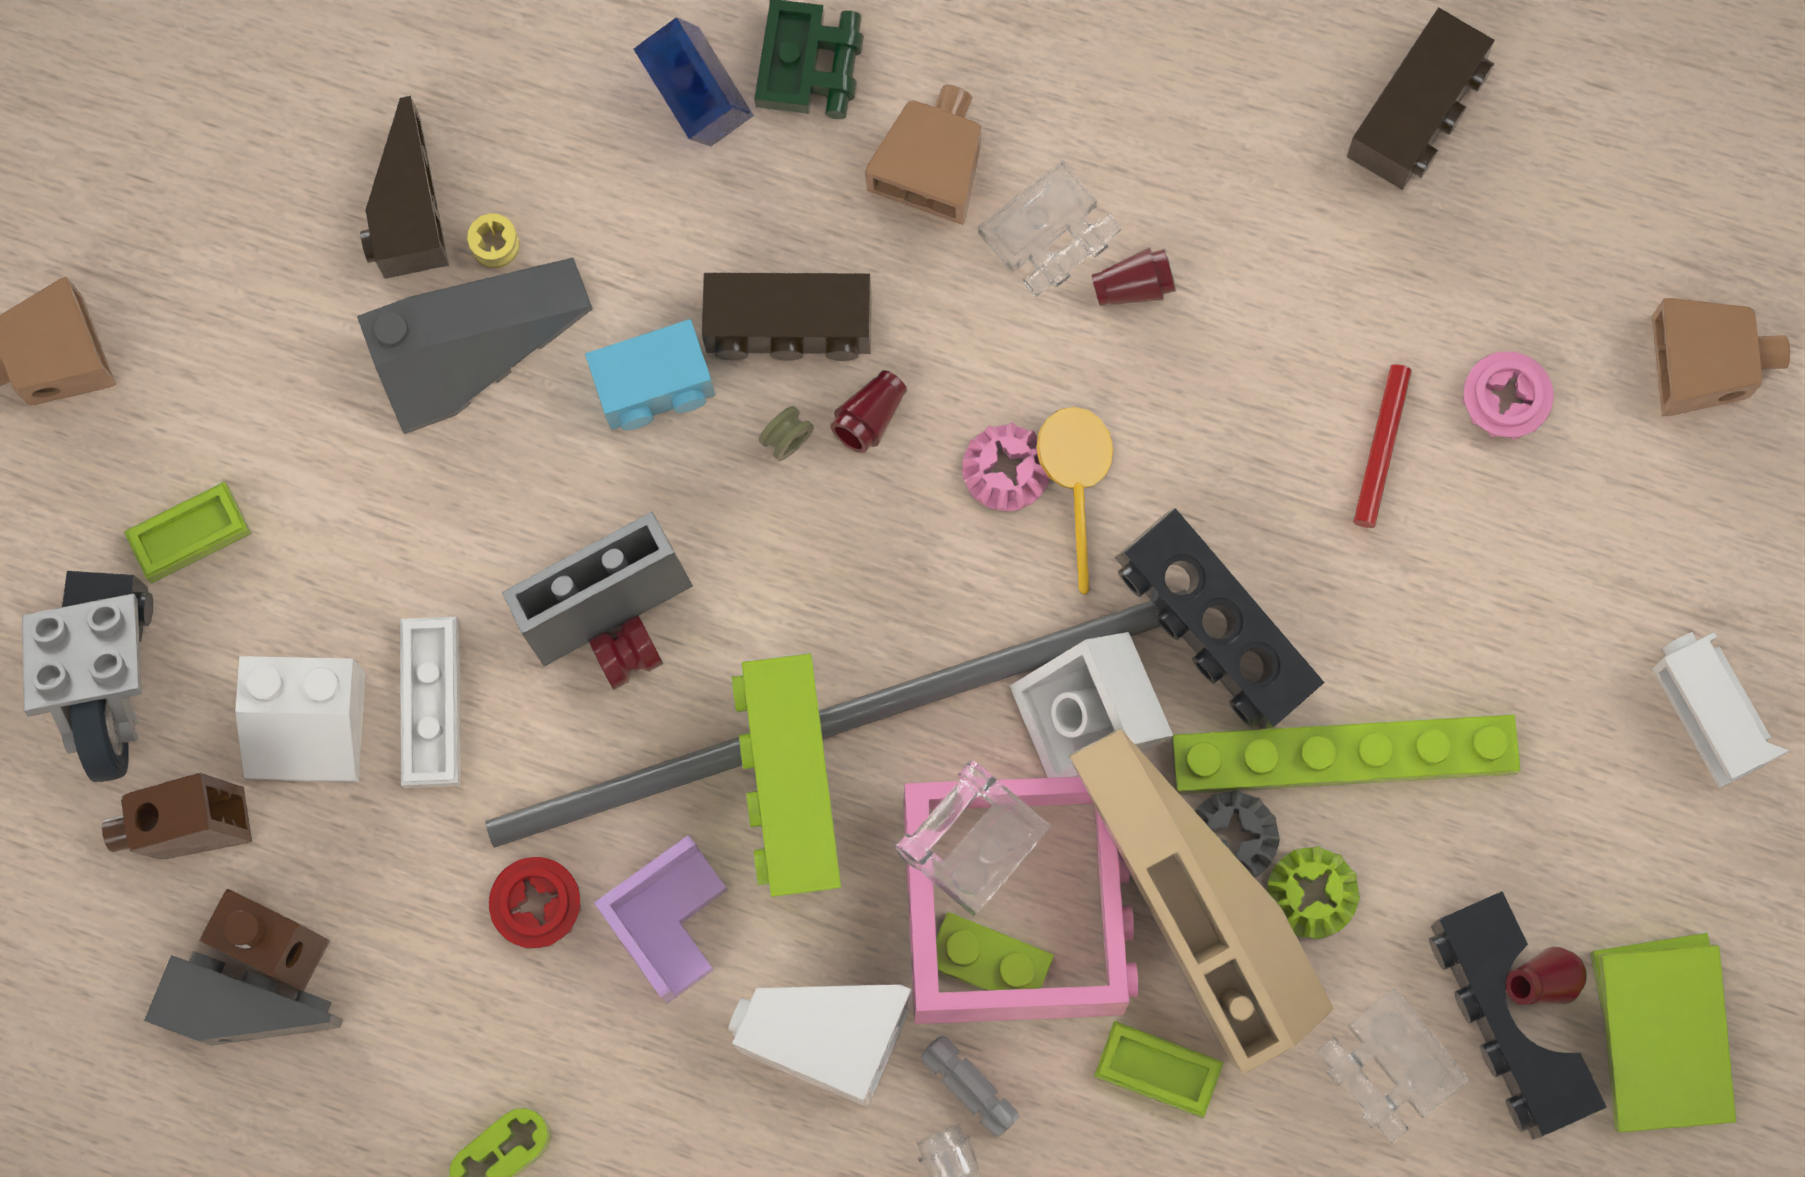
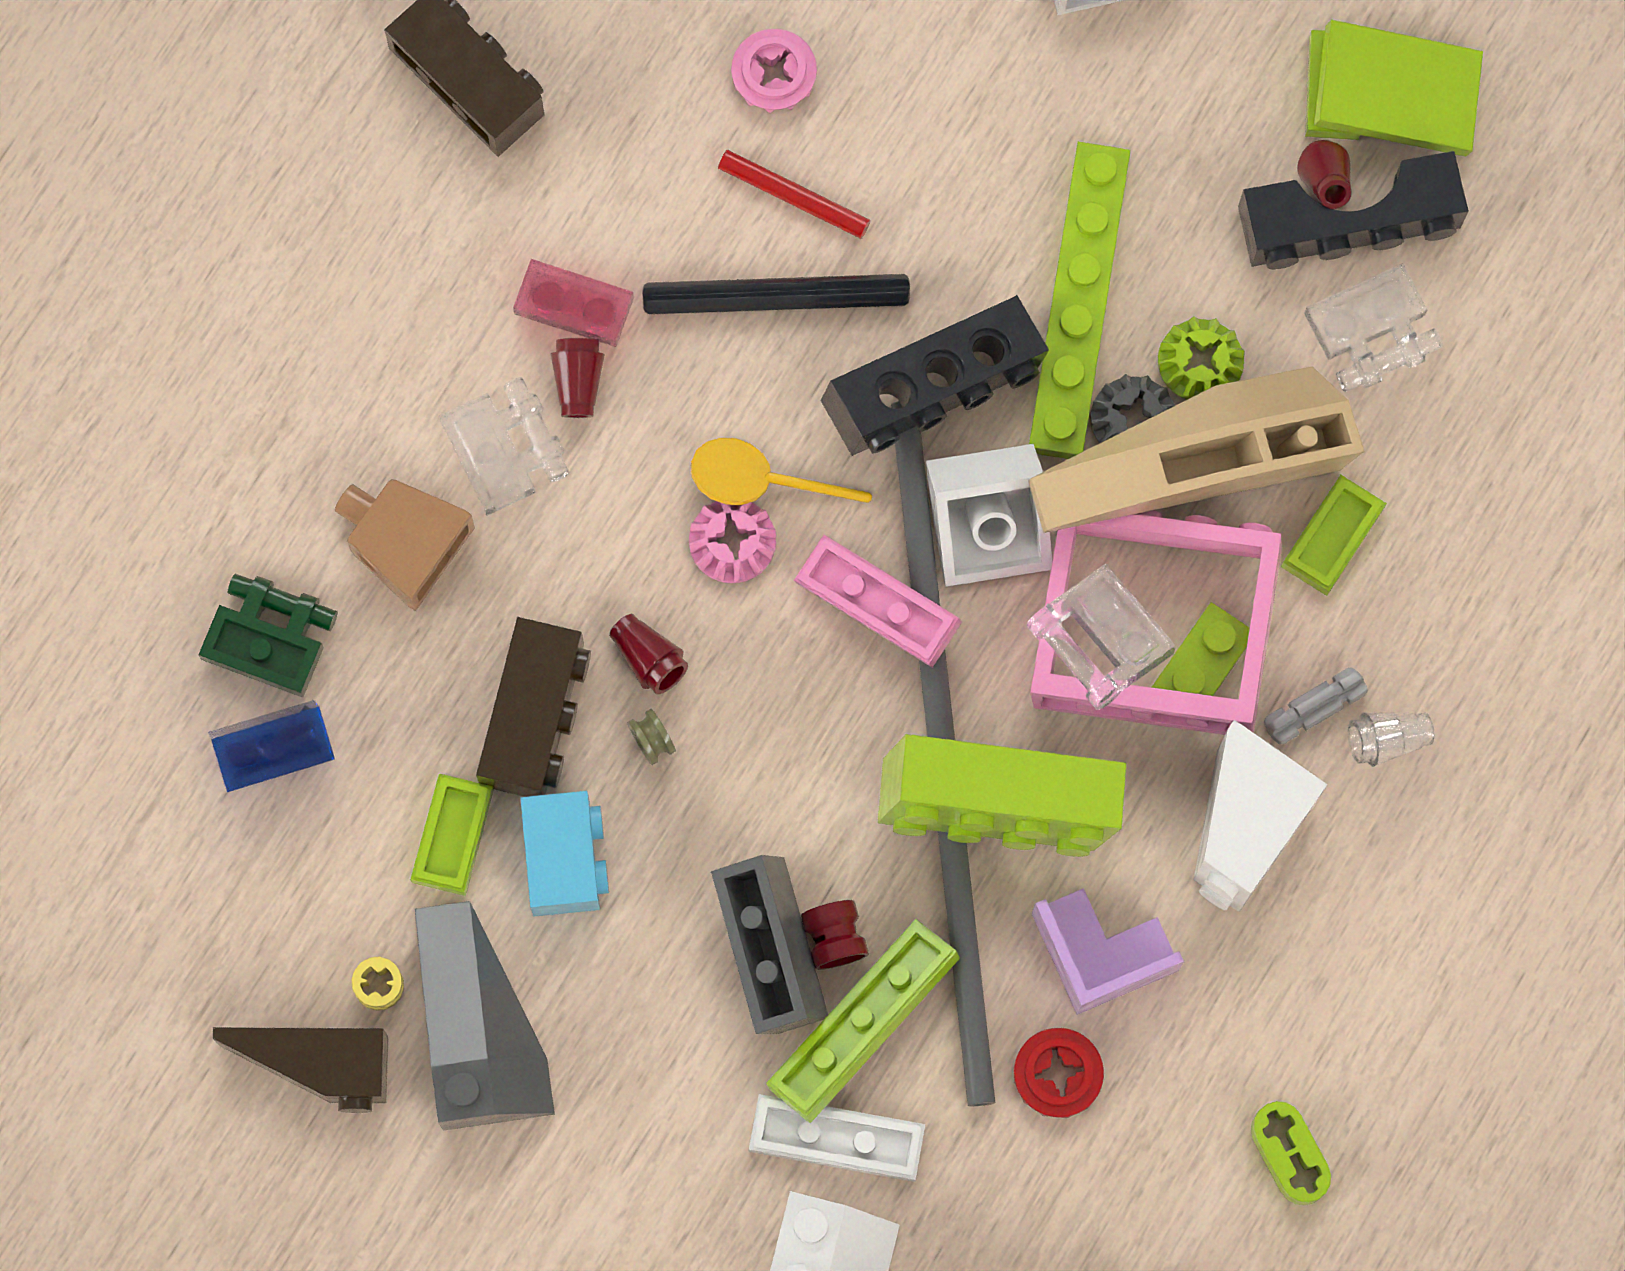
camera: 85 degrees left, 0 degrees up
(545, 698) = (863, 1020): none -> lime tile
(651, 274) = (452, 834): none -> lime tile
(973, 619) = (878, 601): none -> bright pink tile
(1210, 258) = (573, 302): none -> clear pink plate
(1272, 452) = (776, 294): none -> black axle

